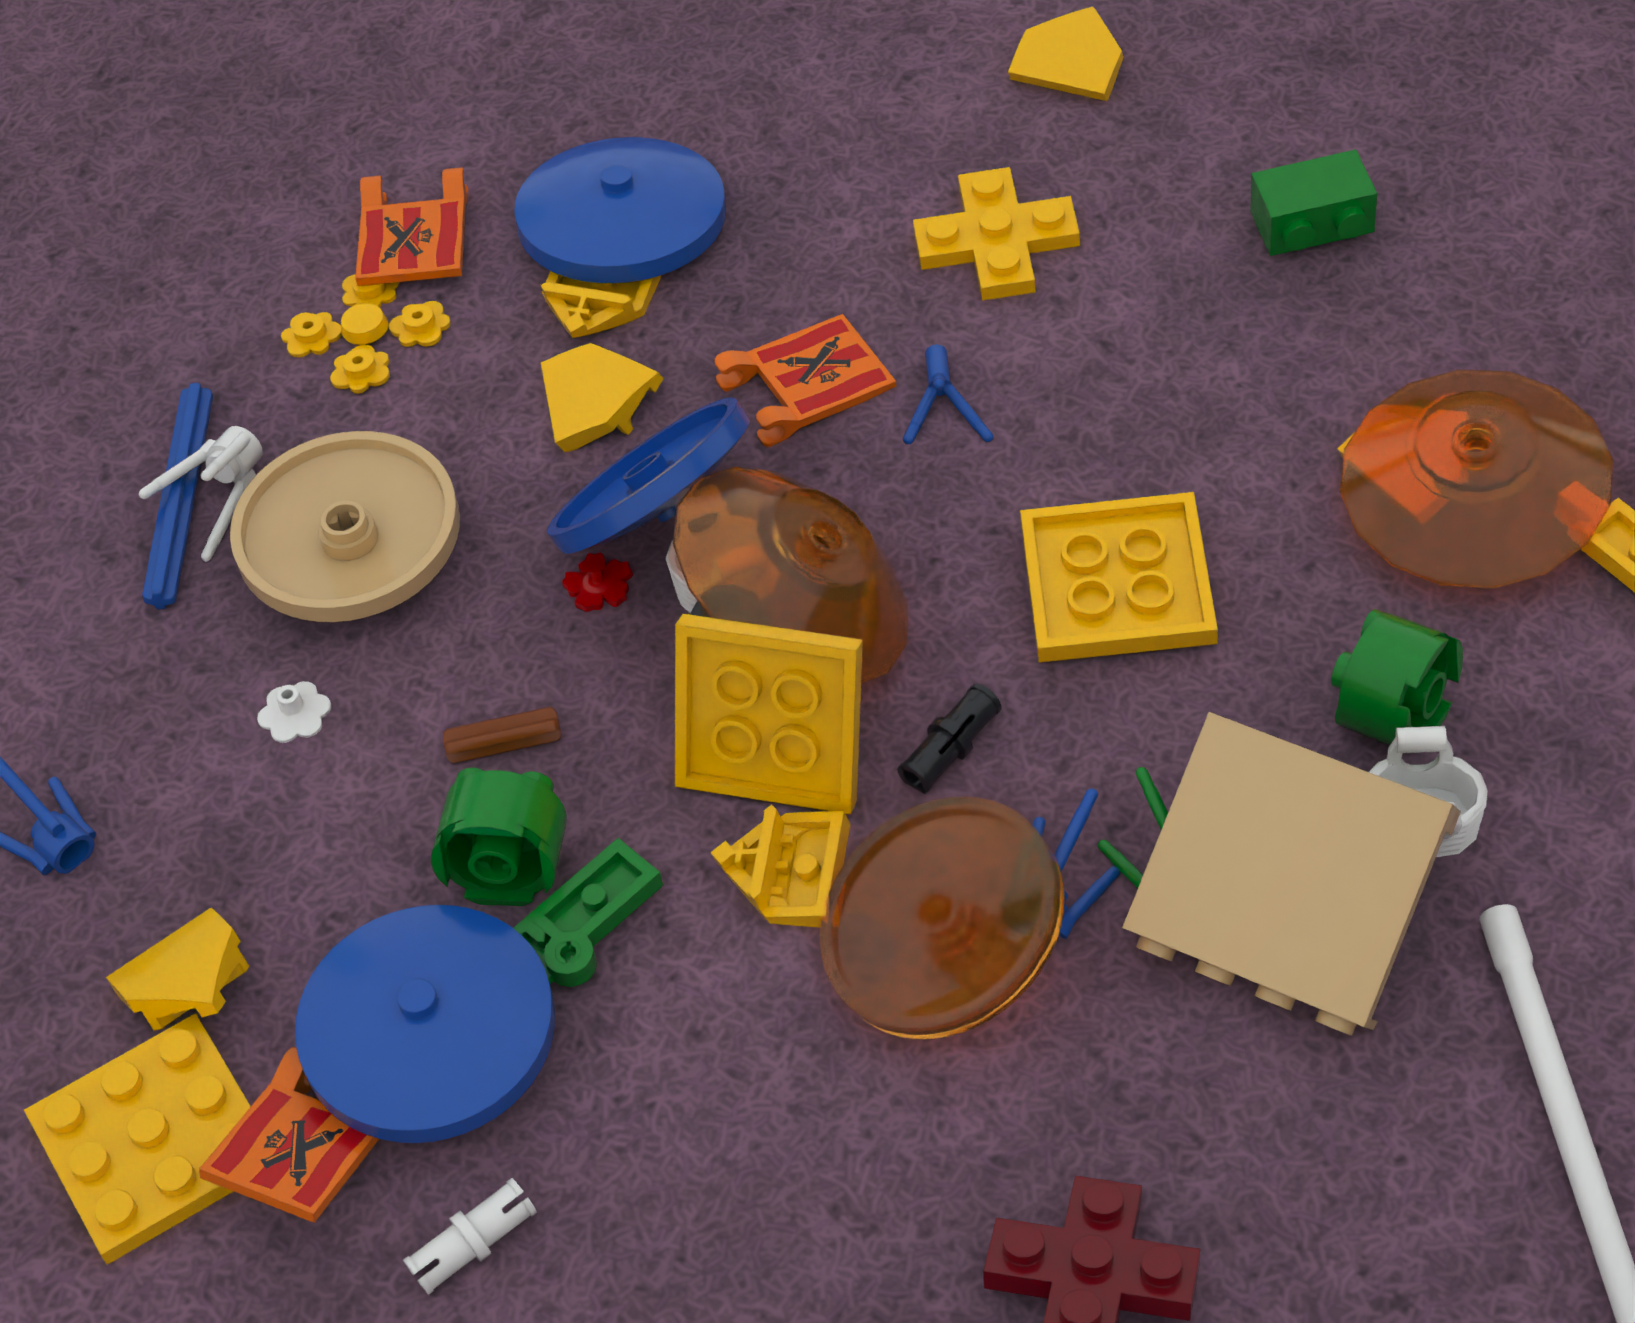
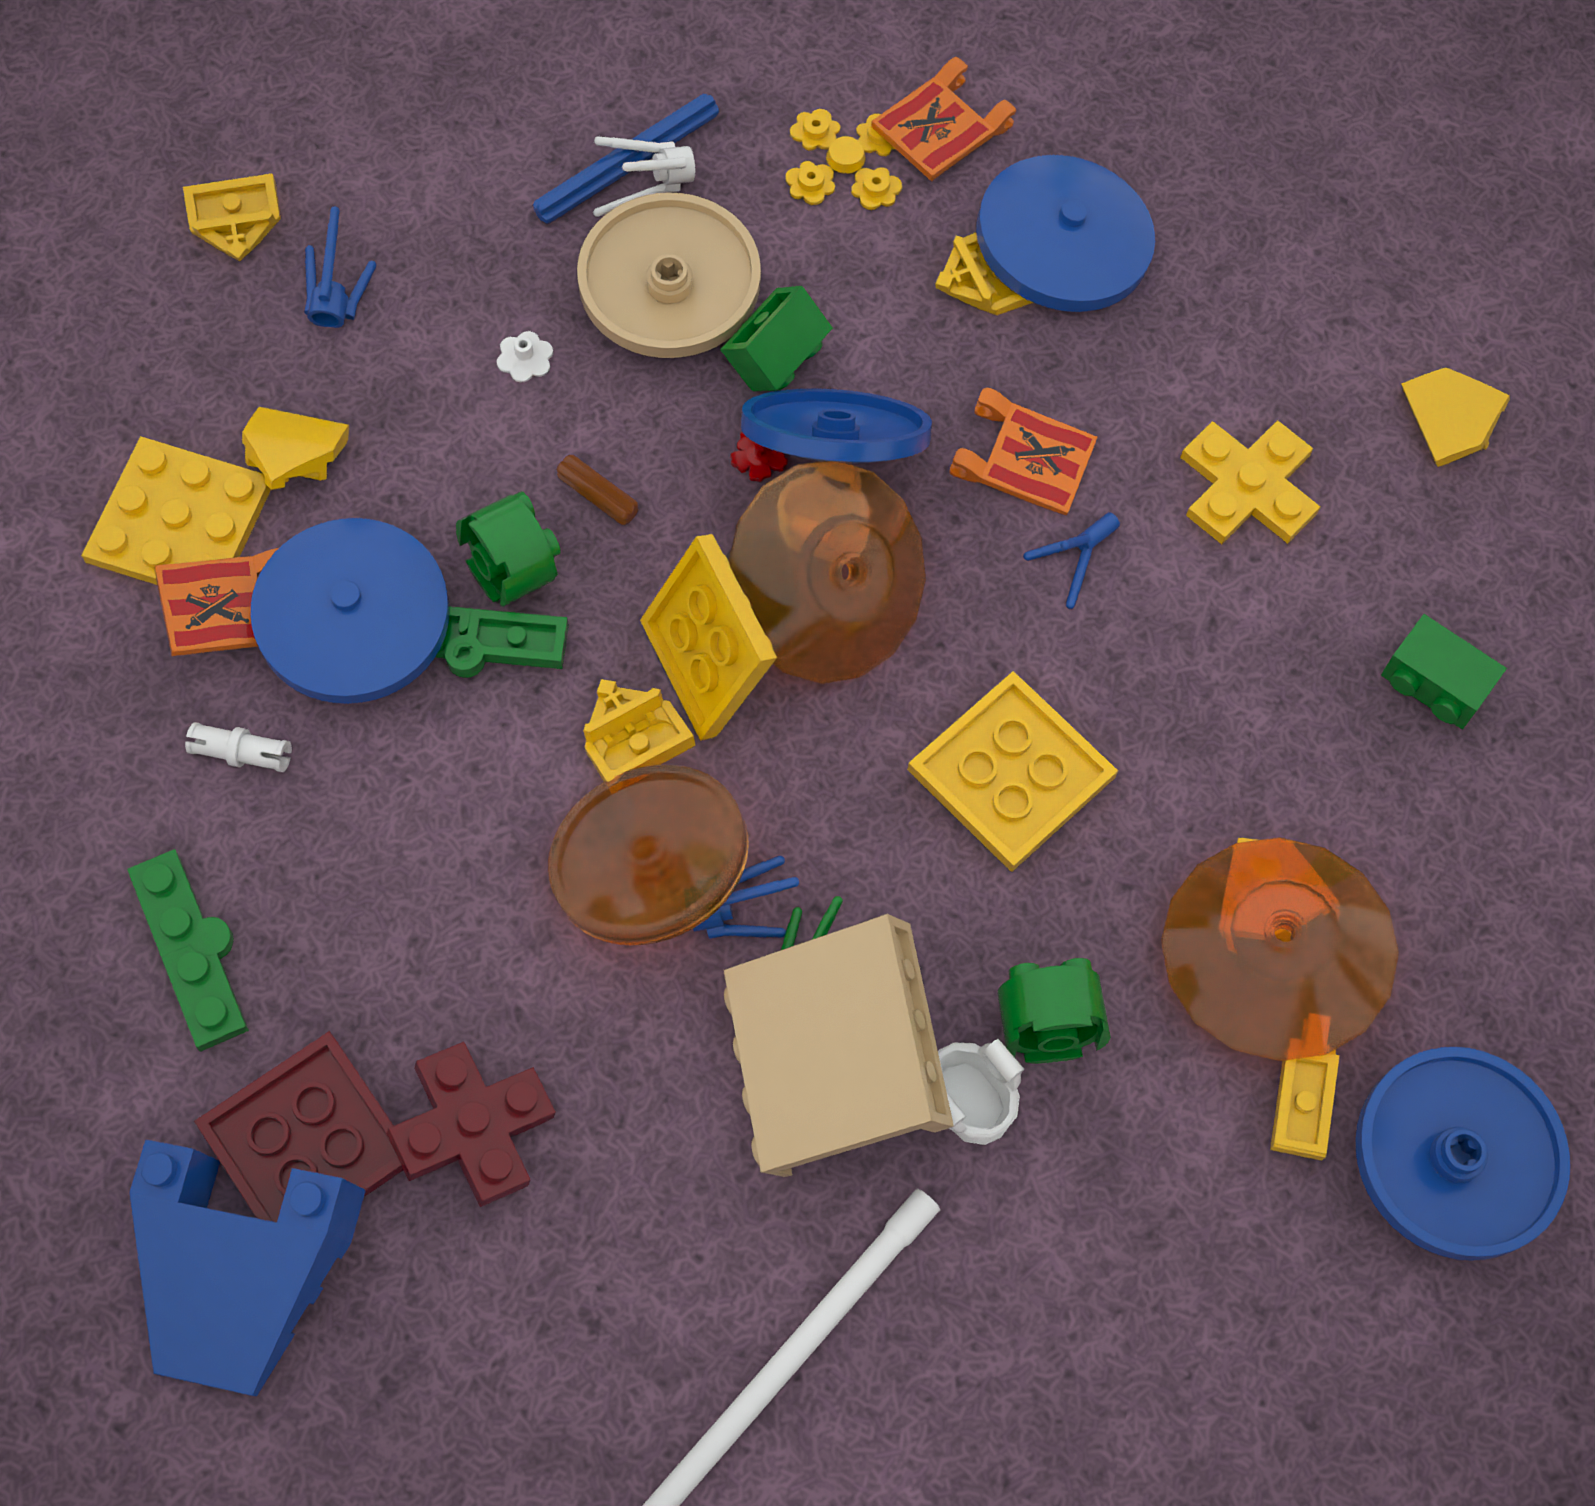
camera: 40 degrees right, 15 degrees up
(502, 482) = (777, 339): none -> green brick
(593, 393) = (900, 336): yellow slope -> none
(970, 713) = (801, 758): black pin -> none

